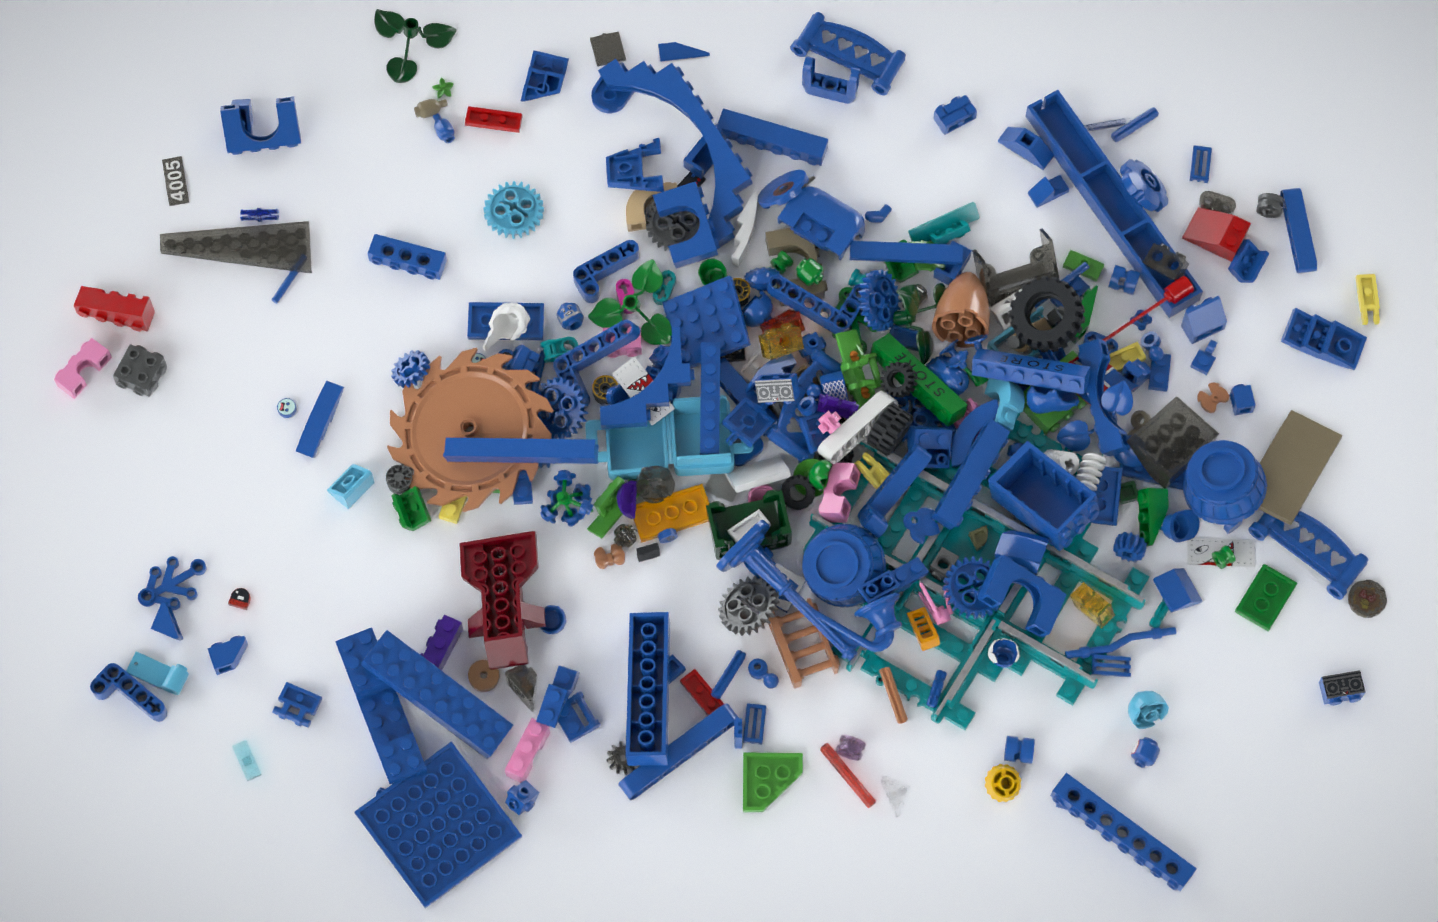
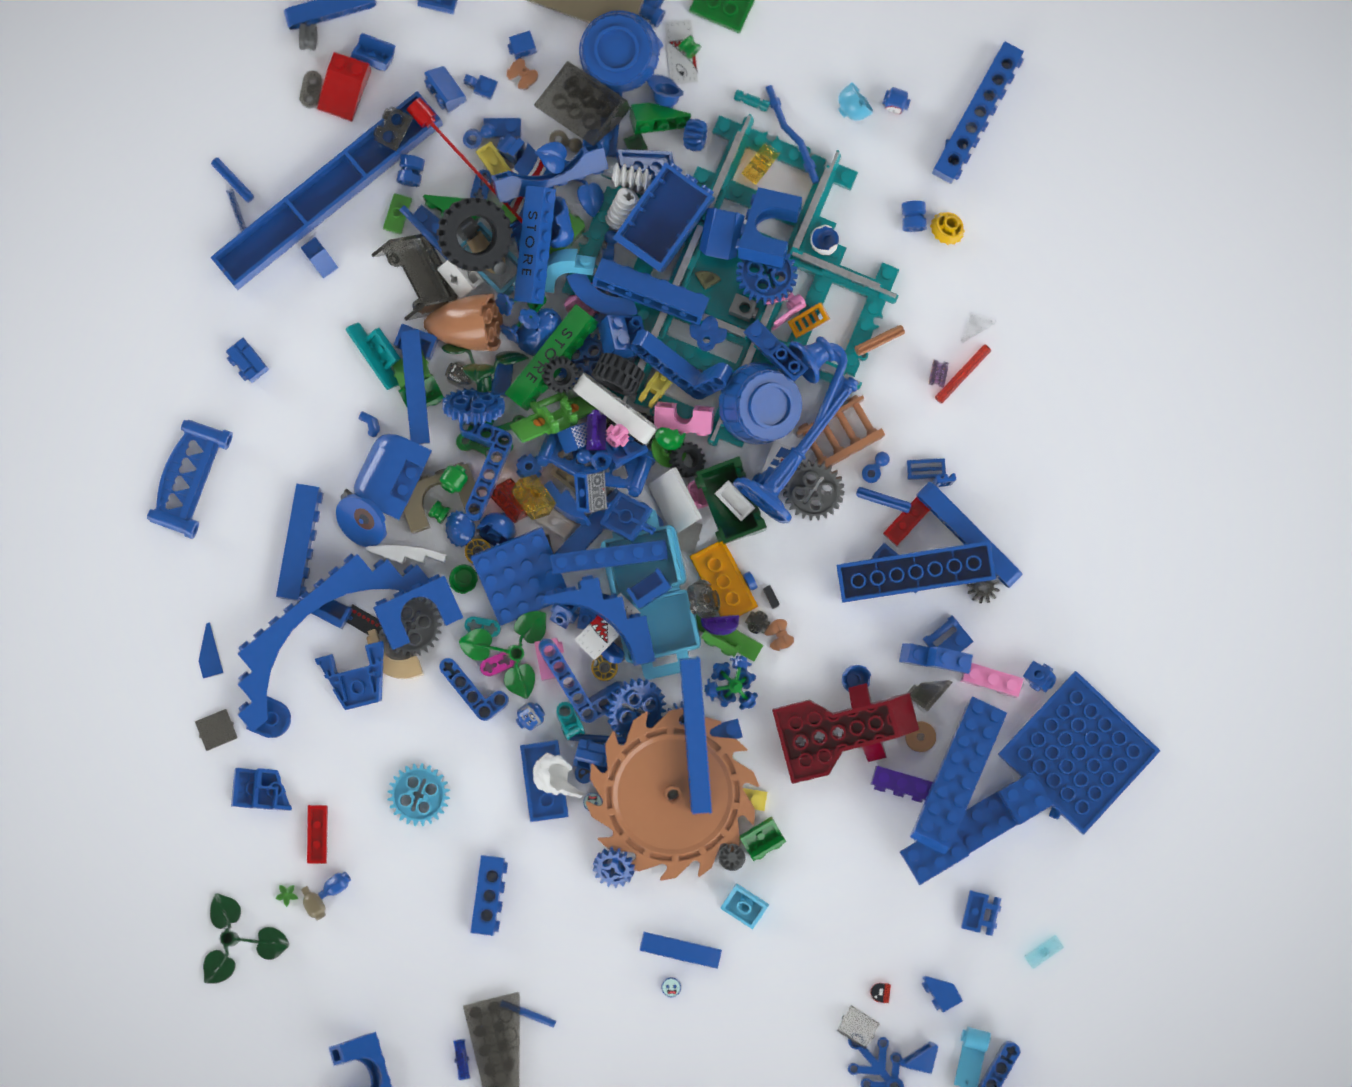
camera: 100 degrees left, 15 degrees up
(211, 570) = (858, 1027): none -> clear smoke piece
(672, 432) = (649, 589): none -> blue panel
(768, 777) = (978, 447): bright green plate -> none
(847, 88) = (225, 511): blue connector -> none
(856, 278) = (447, 432): teal wheel -> none
(936, 688) = (869, 300): blue axle -> none
(1027, 146) = (273, 284): blue slope -> none
(1125, 666) = (814, 128): blue tile -> none
(1144, 185) = (305, 161): blue piece -> none
(1146, 320) = (443, 152): blue plate -> none
(1177, 589) = (730, 86): blue slope -> none
(1198, 177) = (283, 111): blue tile -> none

